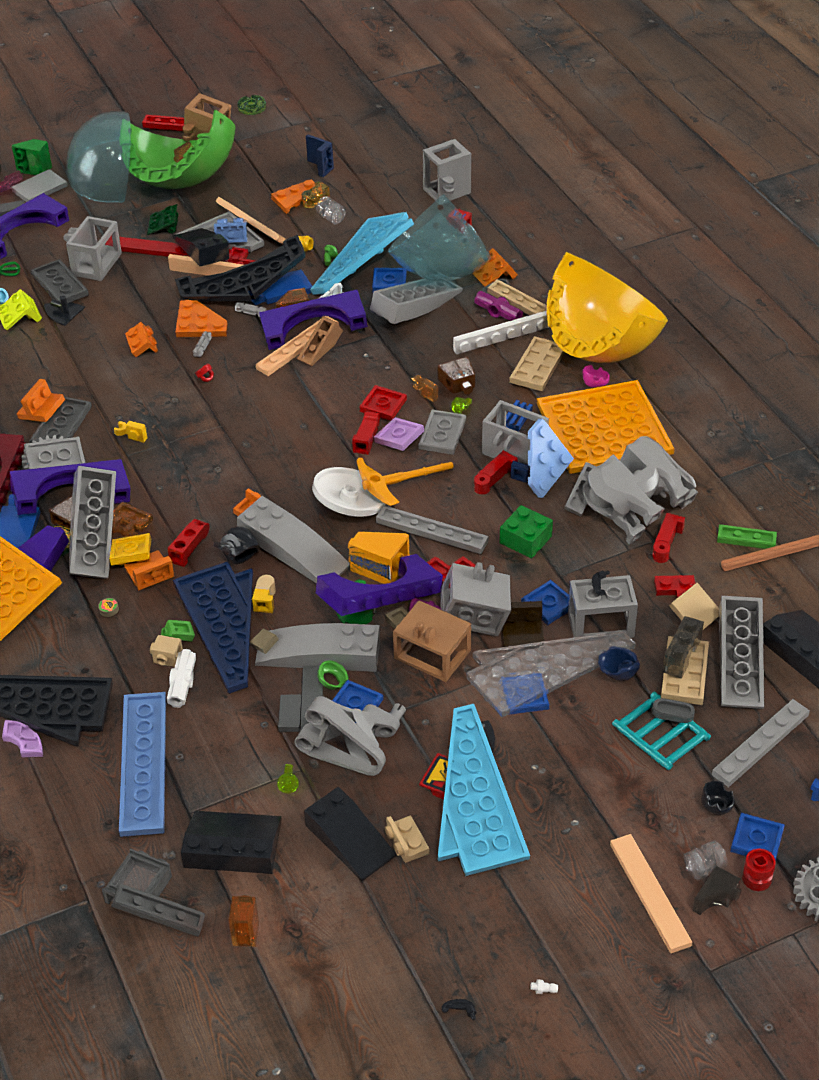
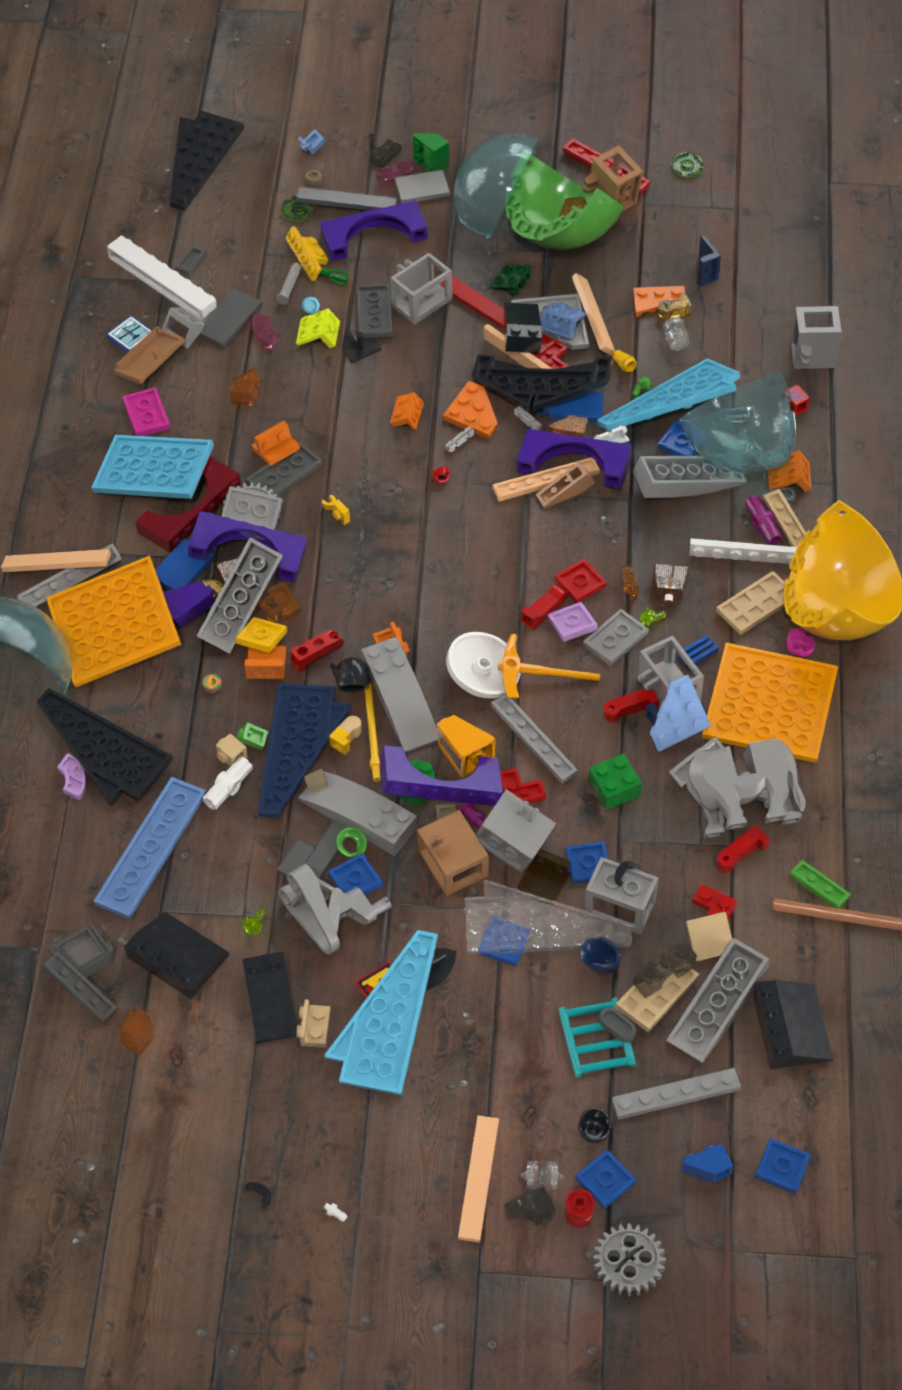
camera: 30 degrees right, 10 degrees up
(305, 604) = (374, 761): none -> yellow bar

